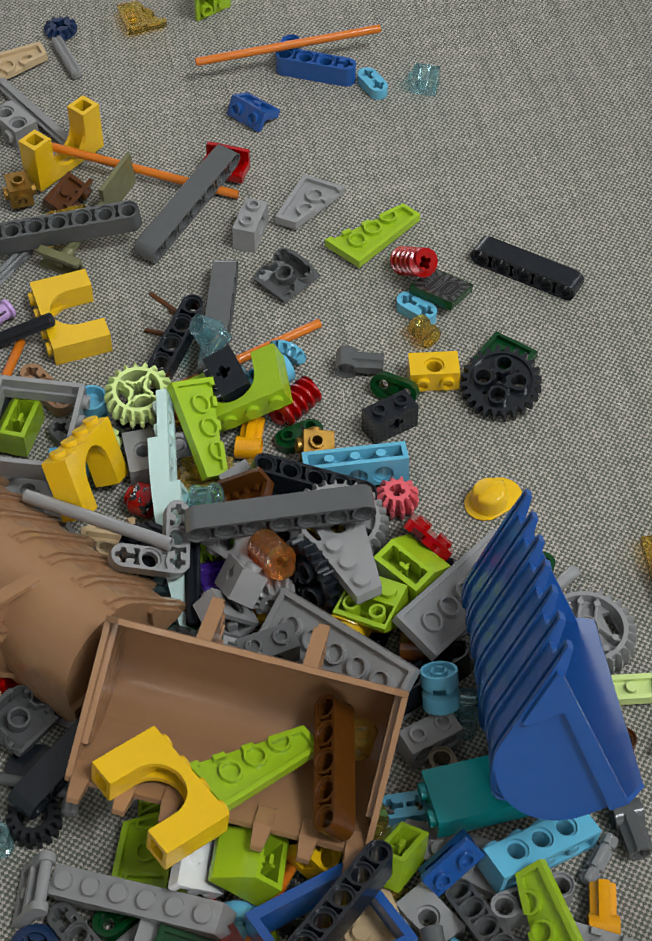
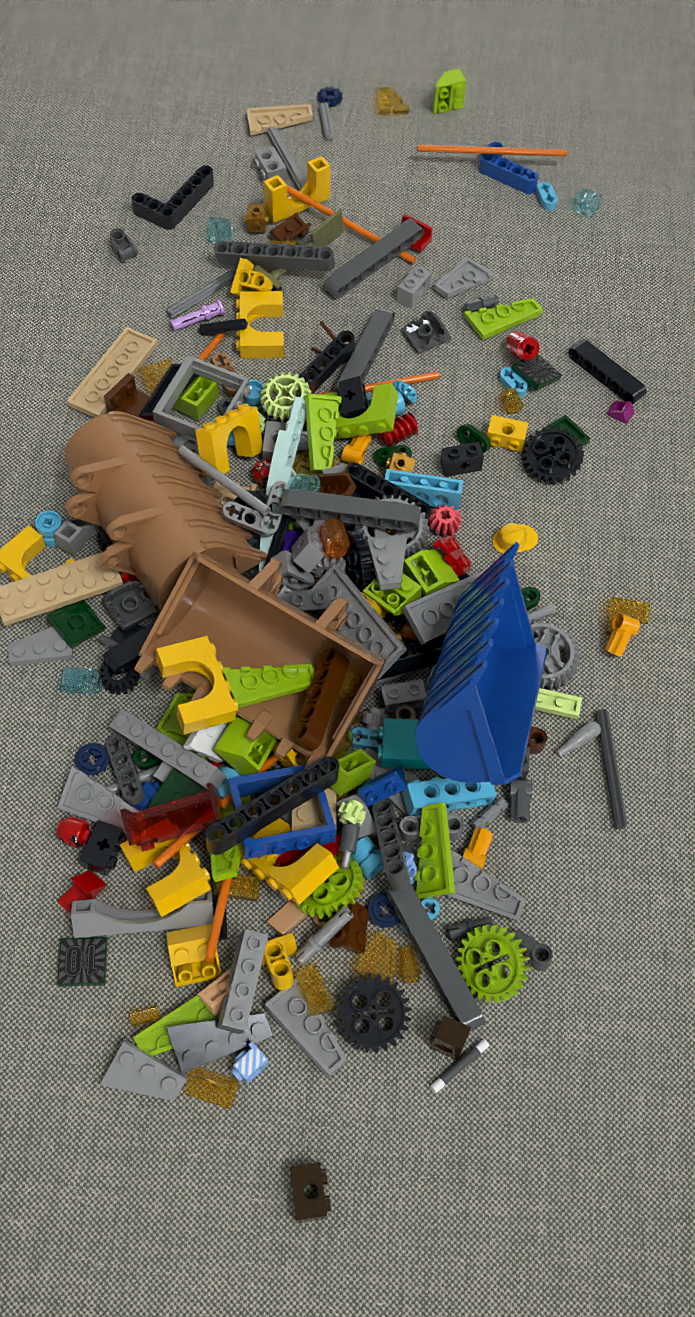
camera: 15 degrees right, 10 degrees up
(33, 889) = (103, 720): light grey plate -> none
(44, 265) = (245, 271): none -> yellow tile
(209, 333) = (350, 363): clear light blue piece -> none
(251, 110) = (447, 196): blue bracket -> none
(342, 224) = (487, 302): none -> dark grey axle
(351, 361) = (450, 410): dark grey piece -> none
(404, 776) = (375, 717): none -> light grey gear
(424, 910) = (351, 812): none -> yellowish green gear
(440, 688) = (419, 664): medium azure wheel -> none
(562, 310) = (621, 411): none -> magenta slope

